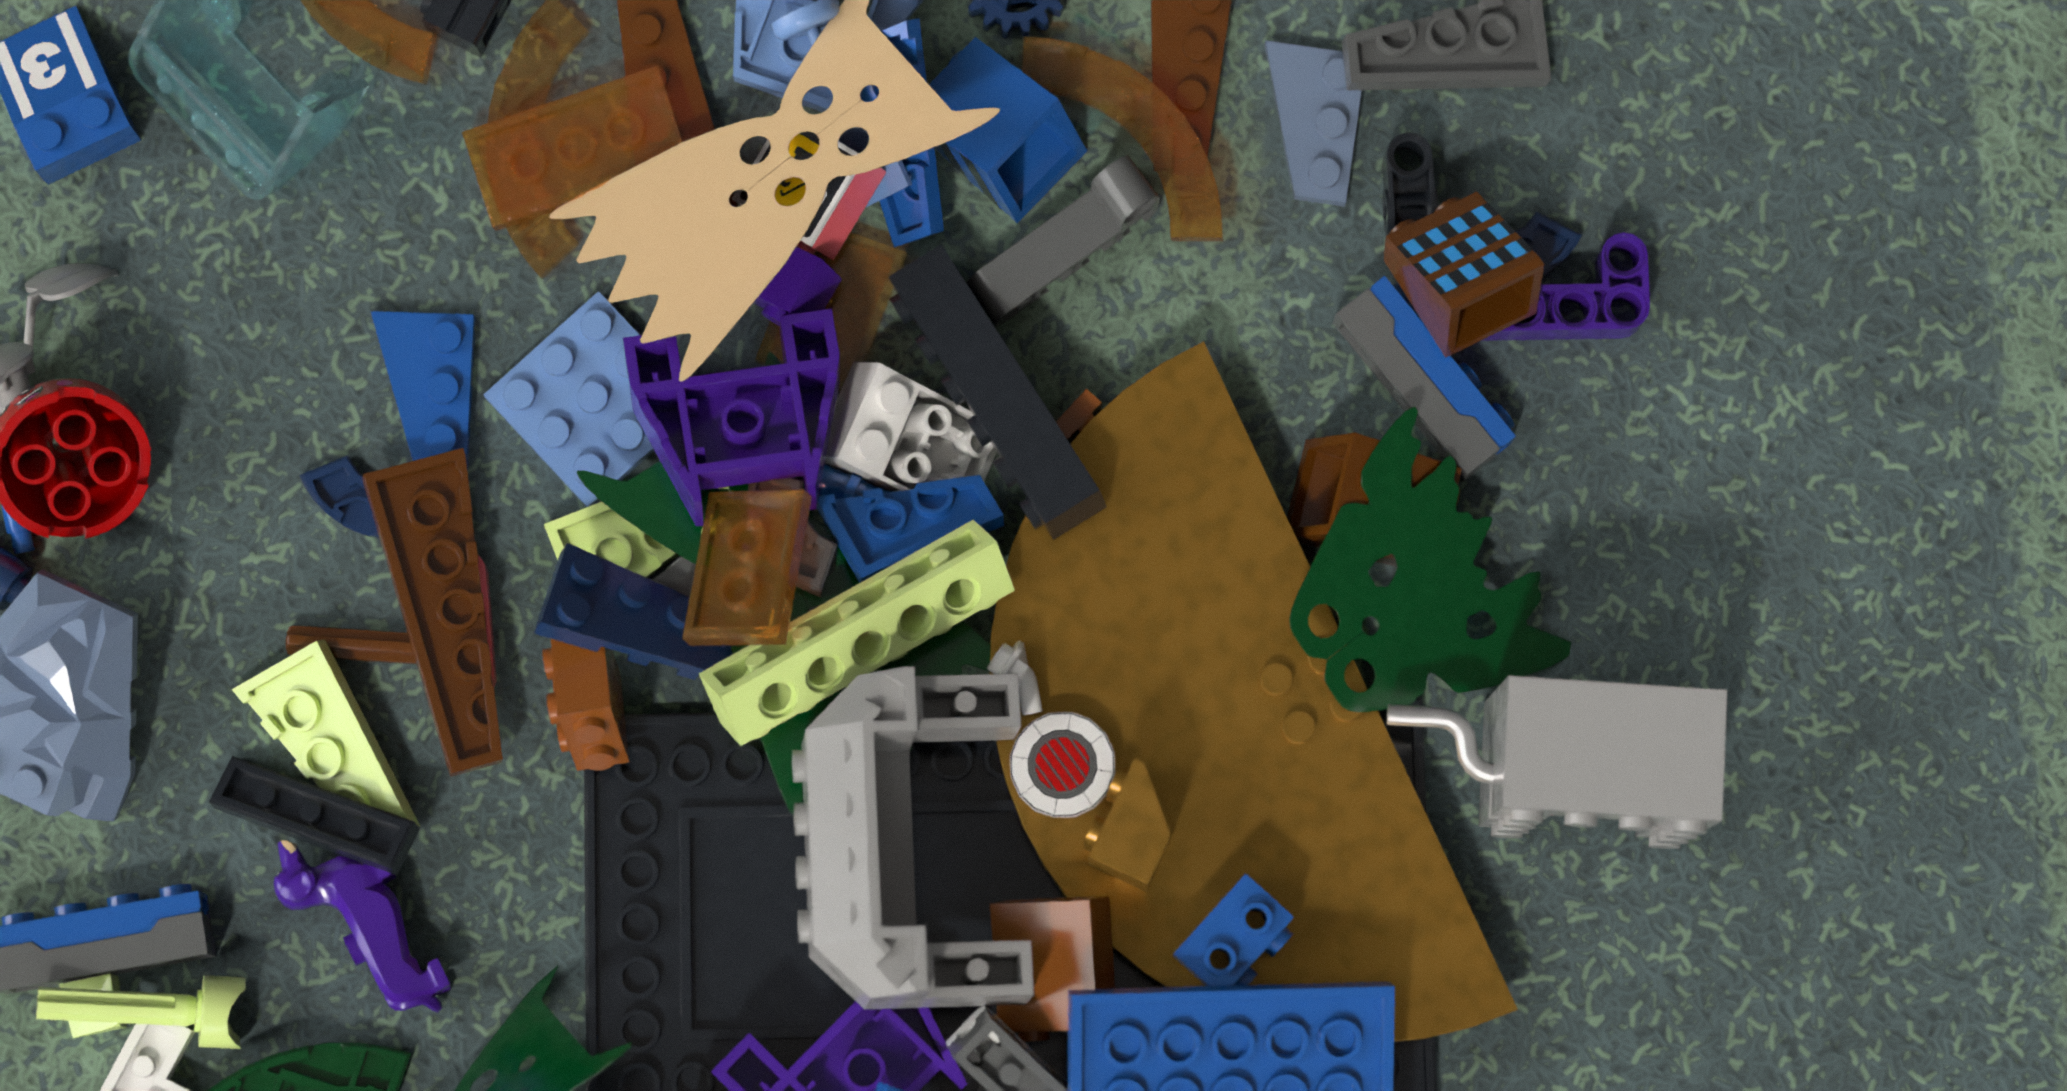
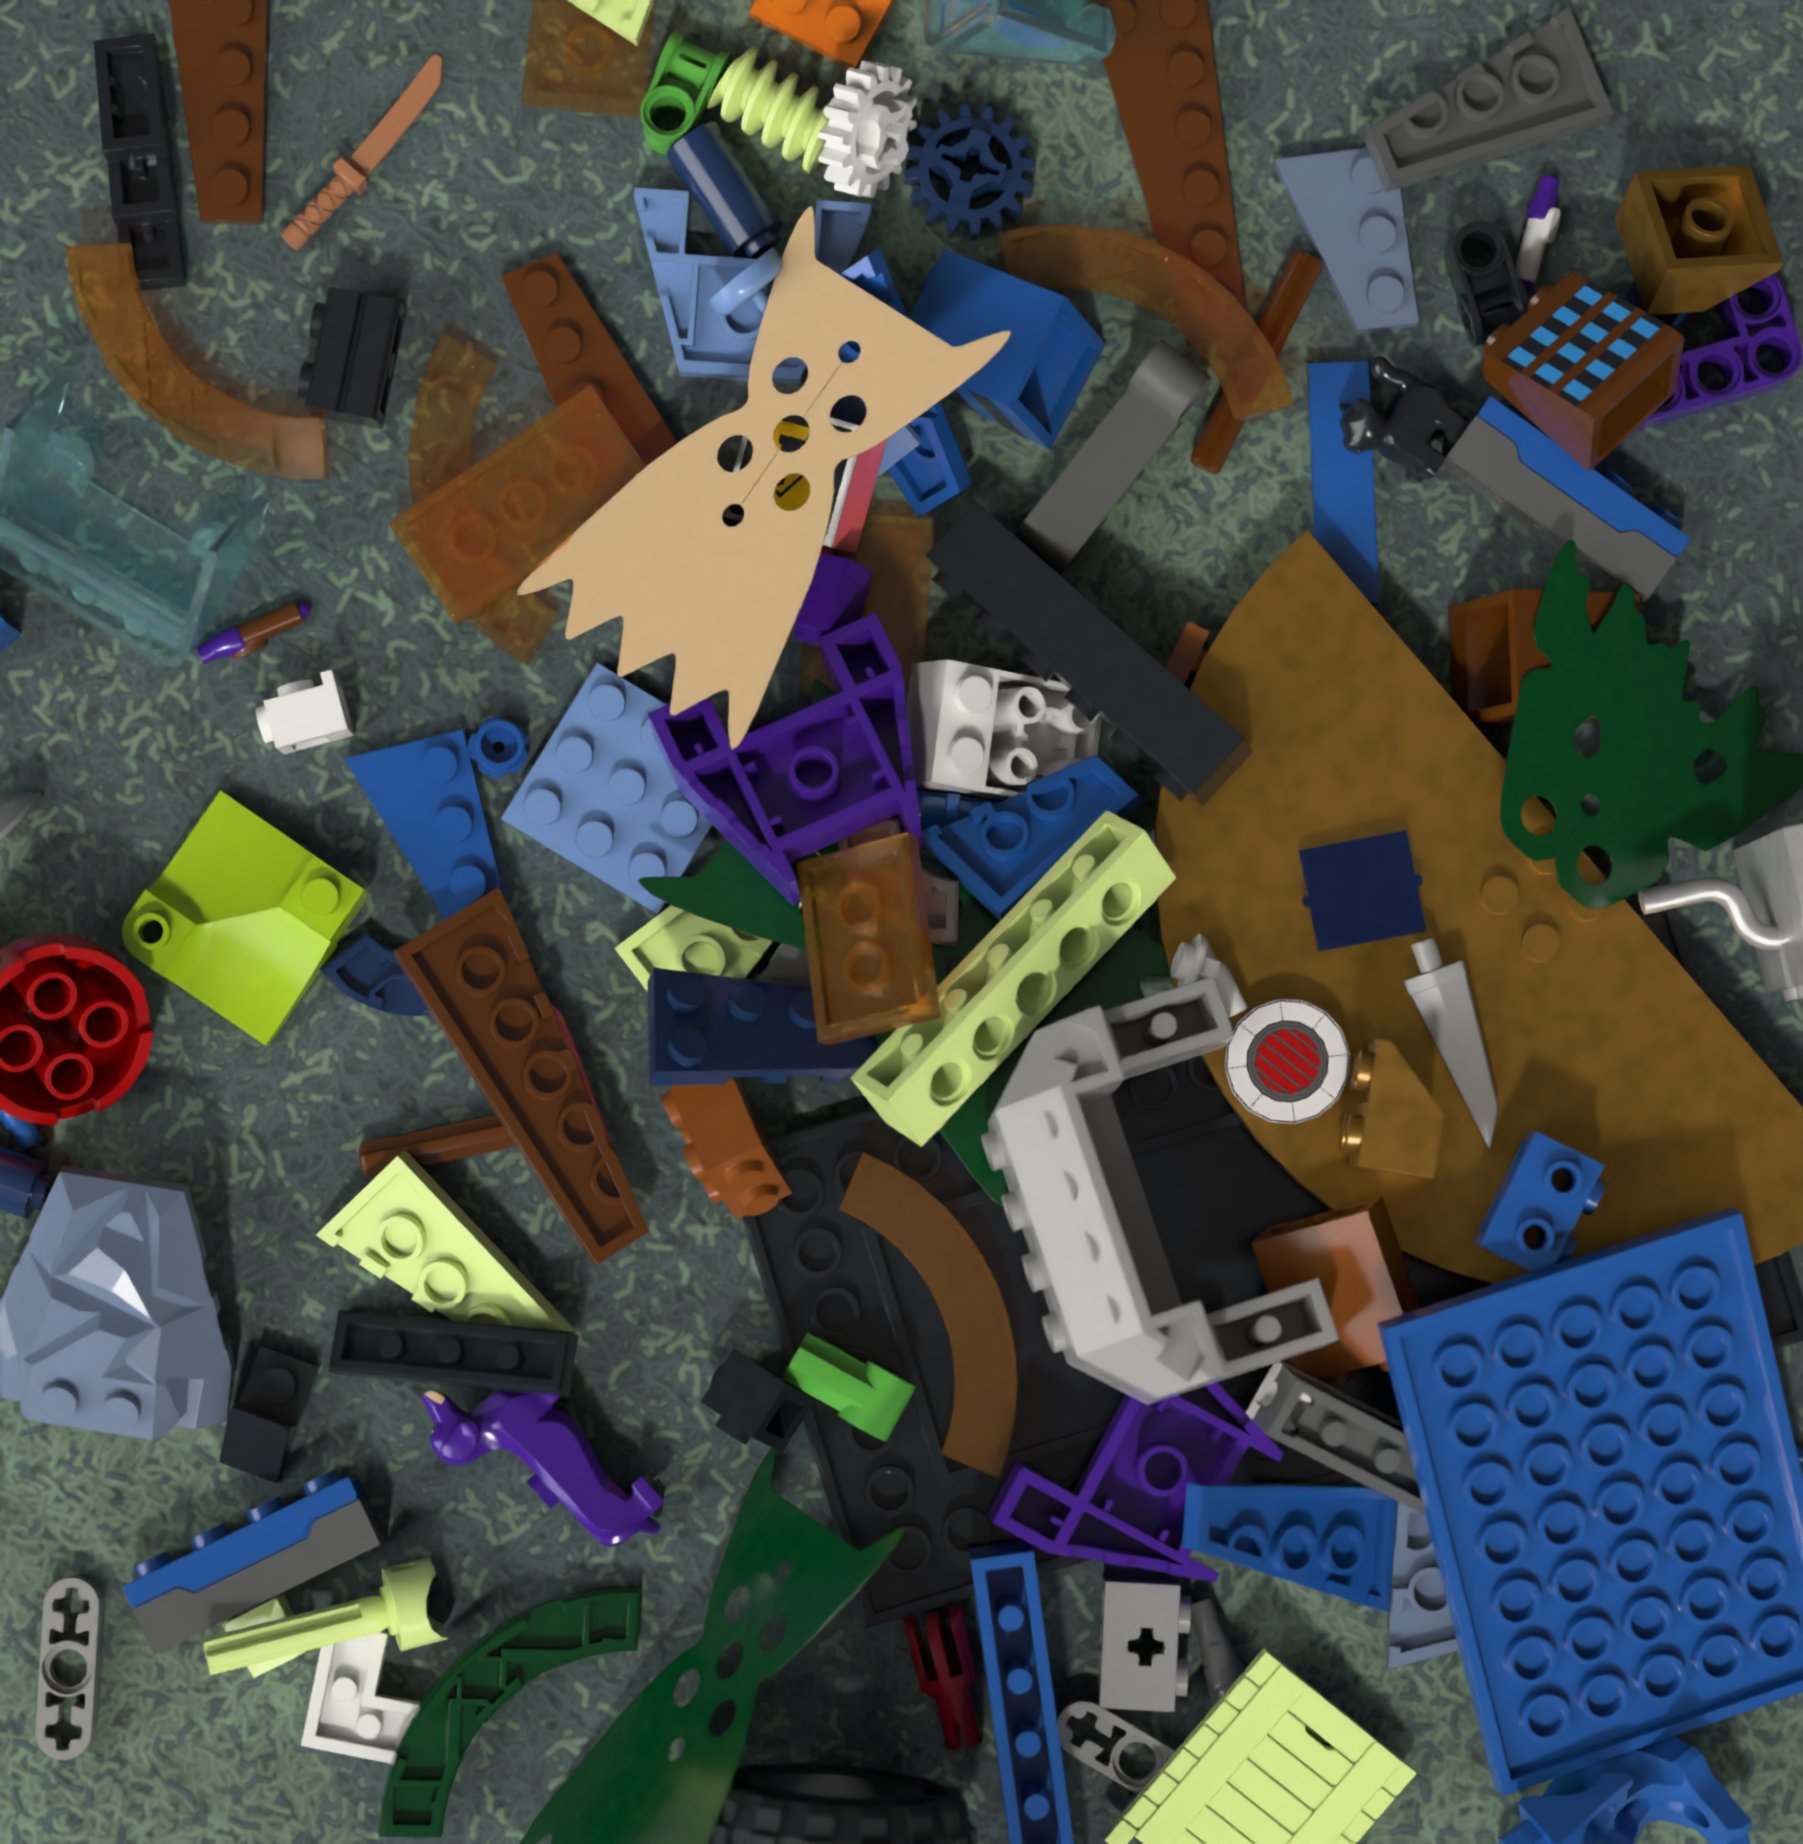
camera: 10 degrees left, 5 degrees up
(149, 825) = (268, 1414): none -> black slope
(250, 417) = (243, 918): none -> lime slope
(327, 192) = (252, 634): none -> piece
(350, 267) = (305, 714): none -> white brick
(498, 323) = (498, 730): none -> blue plate
(549, 925) = (756, 1402): none -> black brick
(637, 939) = (860, 1391): none -> bright green piece
(746, 887) = (968, 1302): none -> clear orange tile
(1164, 644) = (1362, 891): none -> clear blue piece
(1206, 763) = (1450, 1015): none -> light grey bar
(1228, 175) = (1276, 326): none -> reddish brown axle
(1251, 306) = (1340, 479): none -> blue tile
(1316, 277) = (1408, 423): none -> black animal
(1467, 155) = (1540, 229): none -> white piece
(1588, 194) = (1695, 236): none -> pearl gold slope

